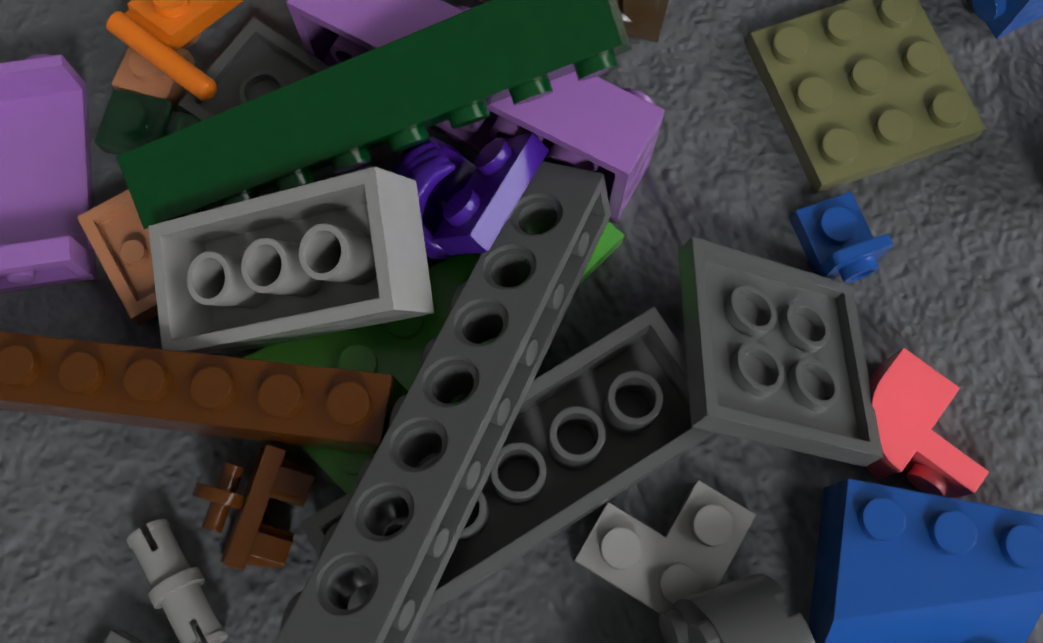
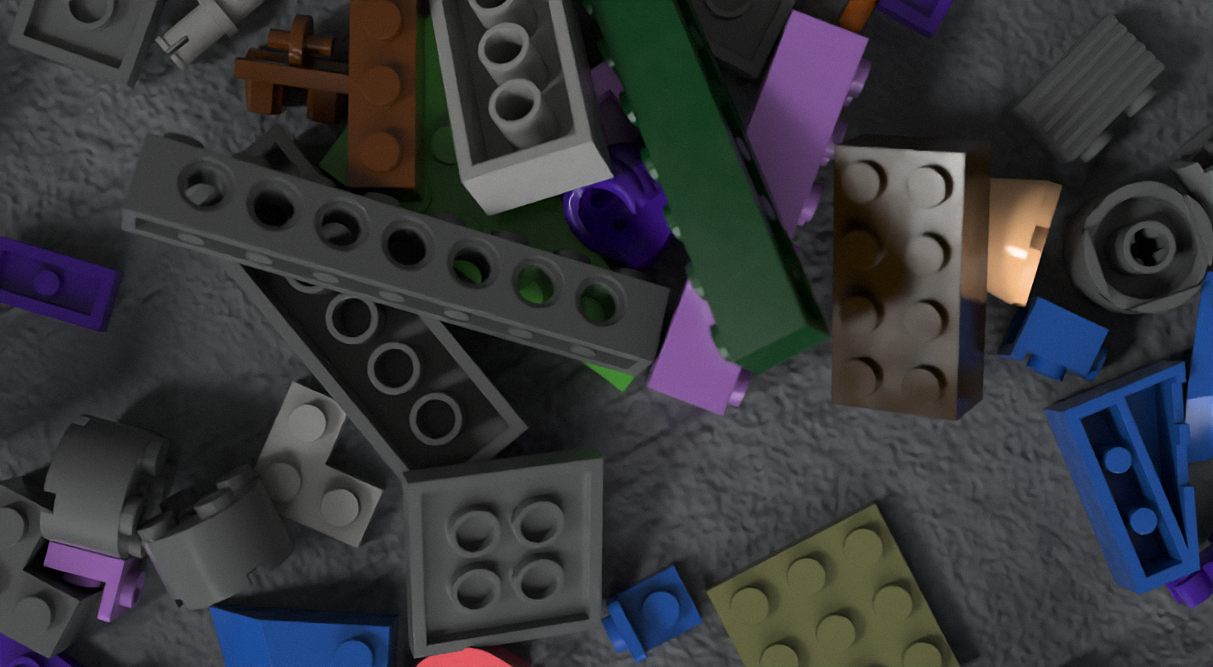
camera: 80 degrees right, 15 degrees up
(484, 205) = (622, 252): dark purple plate -> none

